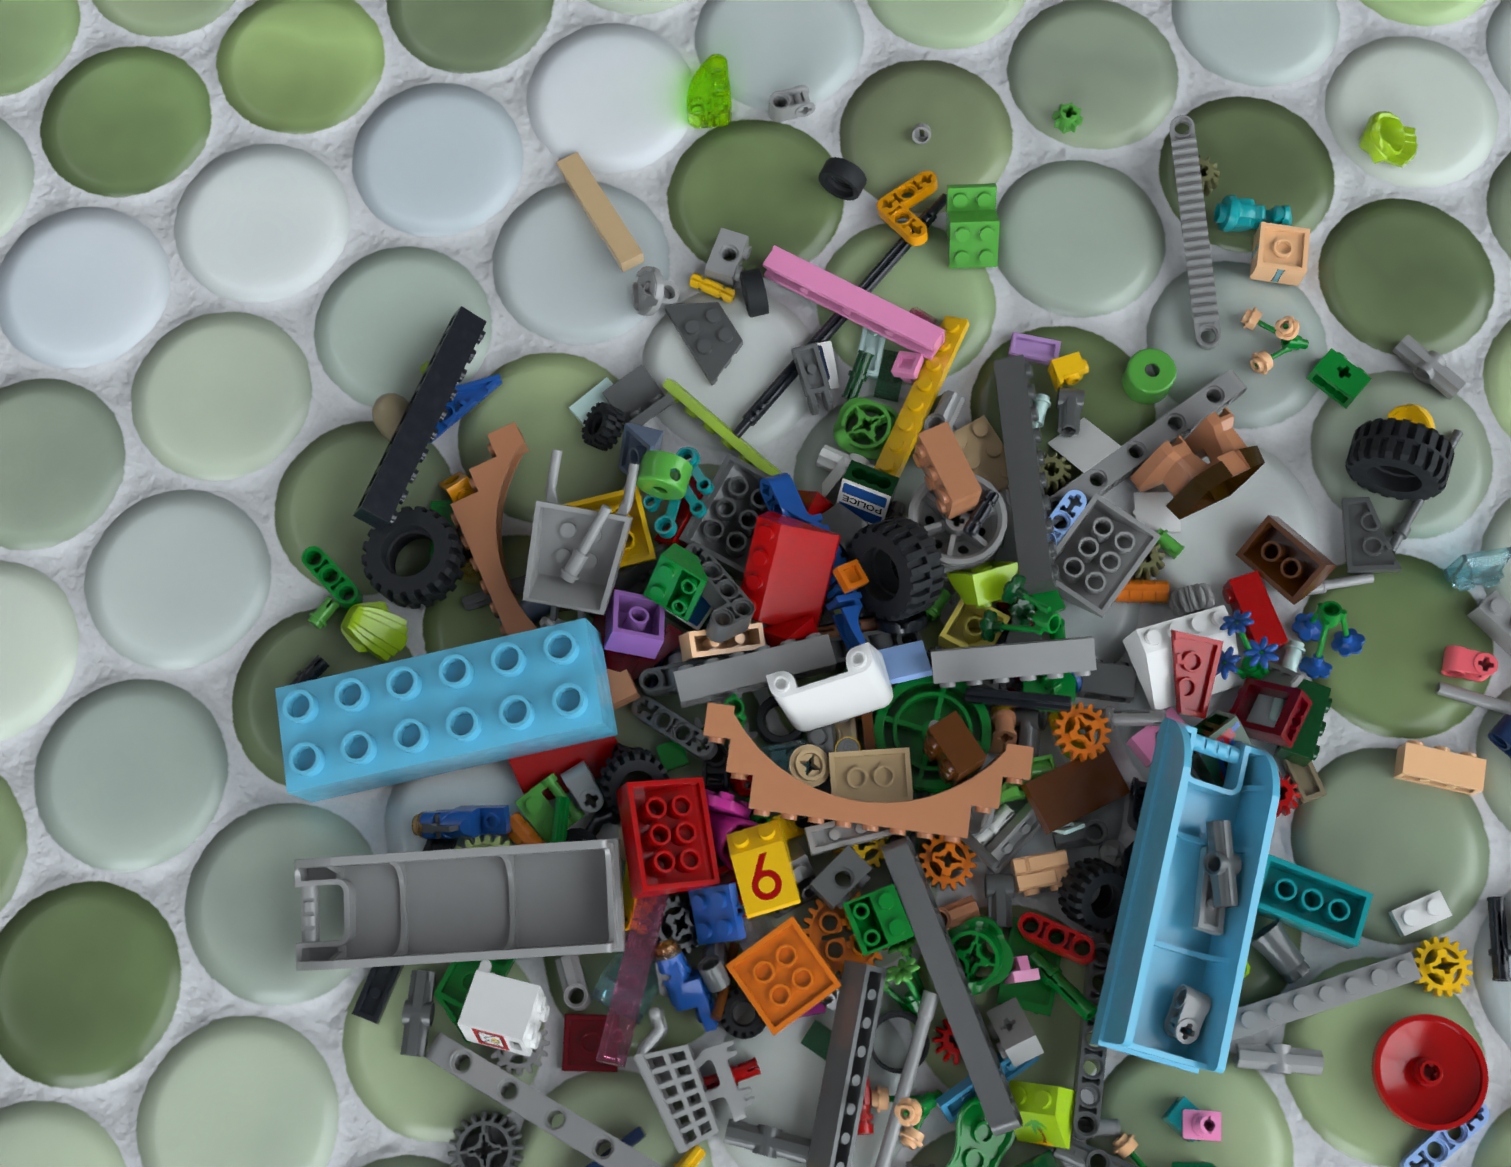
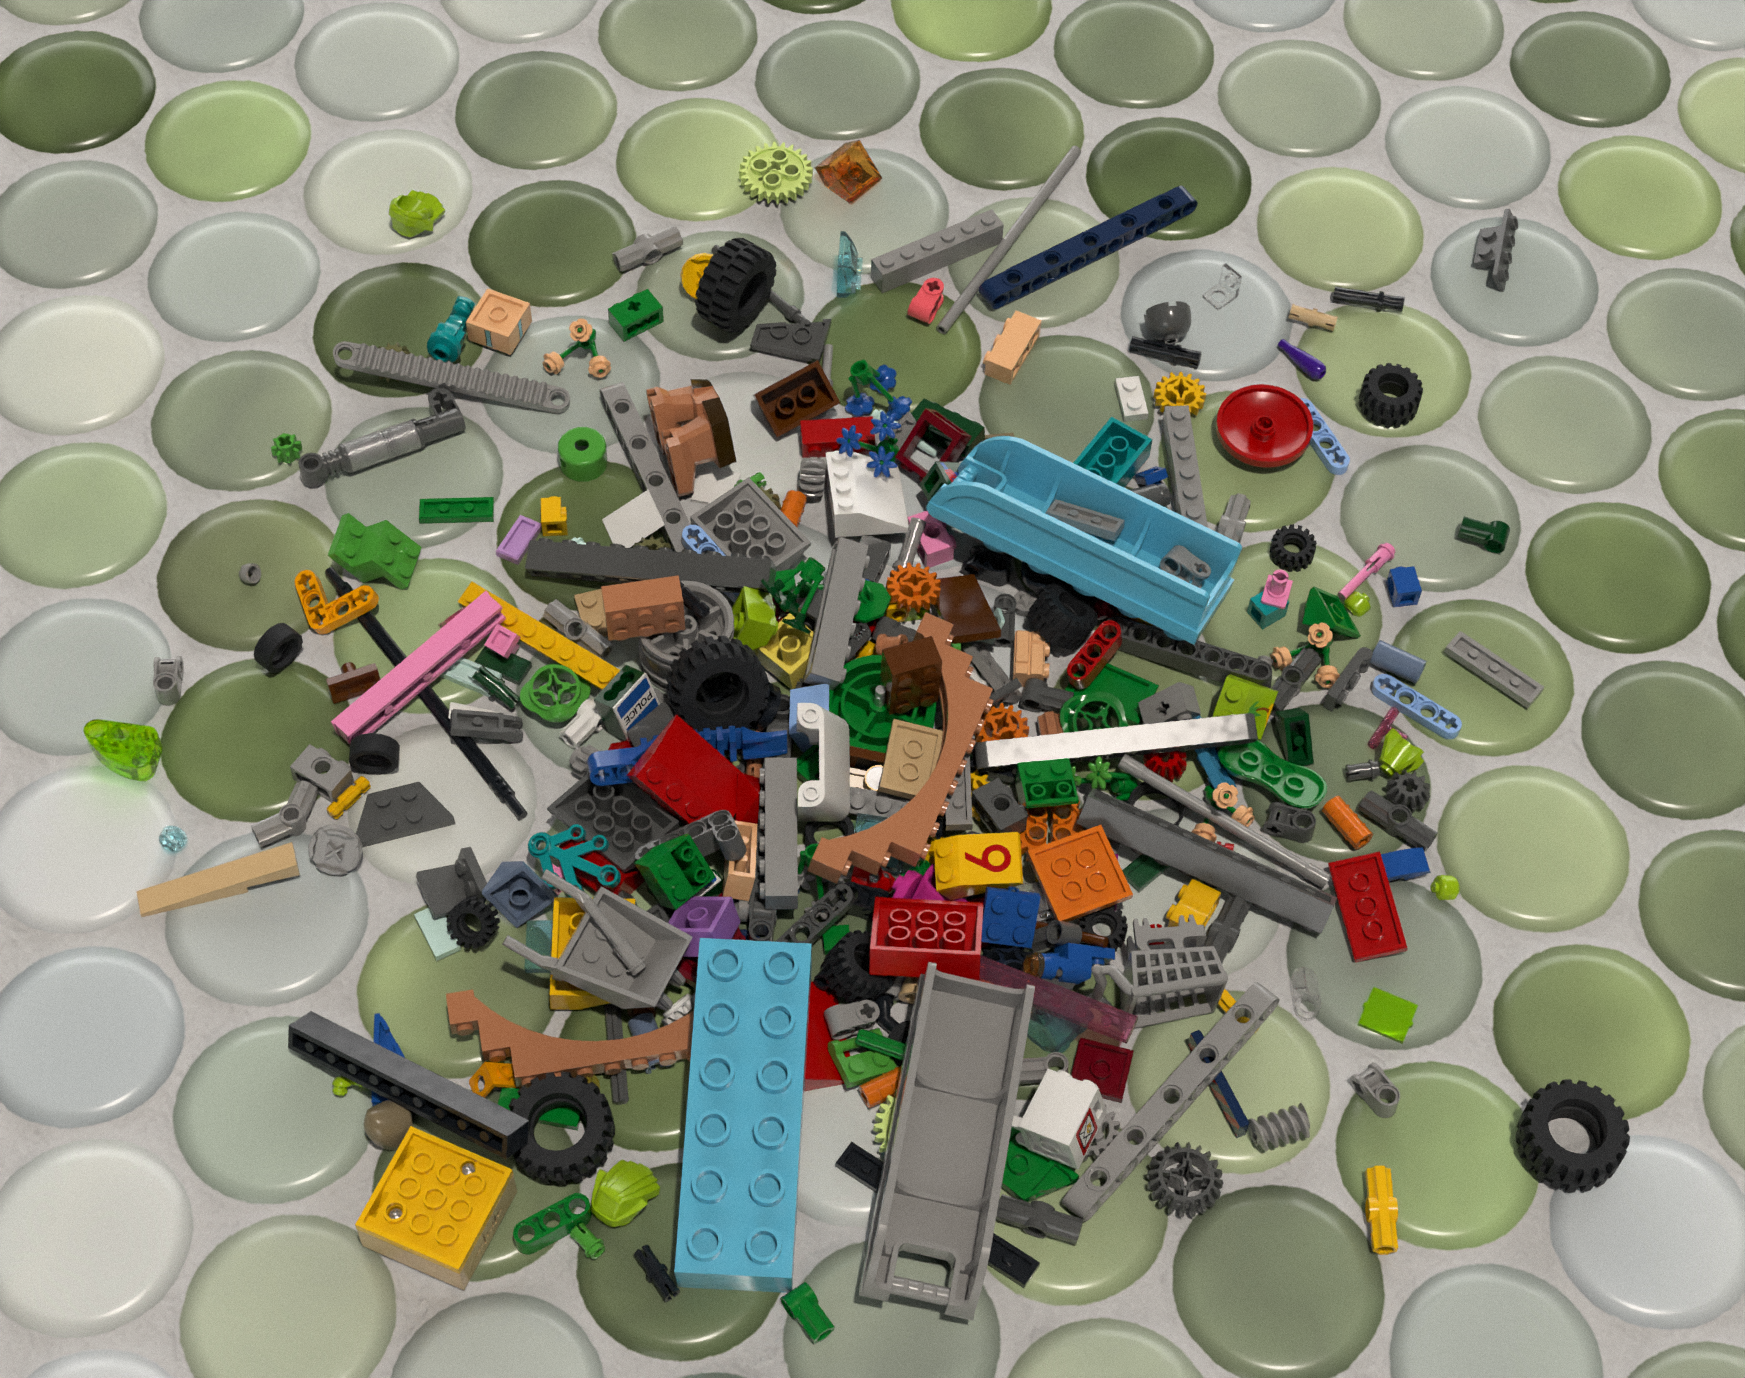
camera: 80 degrees left, 15 degrees down
(294, 814) = (803, 1305): none -> green piece
(315, 476) = (436, 1207): none -> yellow piece
(462, 822) = (858, 1133): blue plate -> none
(601, 486) = (540, 940): none -> clear light blue tile
(633, 161) = (173, 838): none -> clear light blue tile
(656, 472) = (560, 854): bright green piece -> none
(665, 239) = (297, 807): none -> light grey piece
(714, 424) = (503, 825): lime plate -> none
(787, 1103) = (1194, 900): none -> yellow brick
(802, 475) = (579, 759): none -> light grey gear
(819, 761) = (883, 802): tan gear -> none
(830, 253) = (352, 681): none -> reddish brown tile
(833, 477) = (599, 728): white sticker -> none
(850, 576) = (714, 724): orange plate -> none
(1018, 699) = (871, 623): black axle -> none
(1021, 971) = (1117, 688): bright pink tile -> none
(1050, 285) = (456, 510): none -> green tile
(1053, 977) = (1110, 679): green pin -> none
(1069, 406) = (588, 522): dark grey piece -> none
(1103, 201) = (387, 442): none -> piece
(1194, 671) = (884, 486): wing -> none
(1222, 864) = (1050, 498): dark grey piece -> none
(1292, 1130) = (1290, 559): none -> black tyre
(1318, 956) = (1151, 476): none -> blue plate

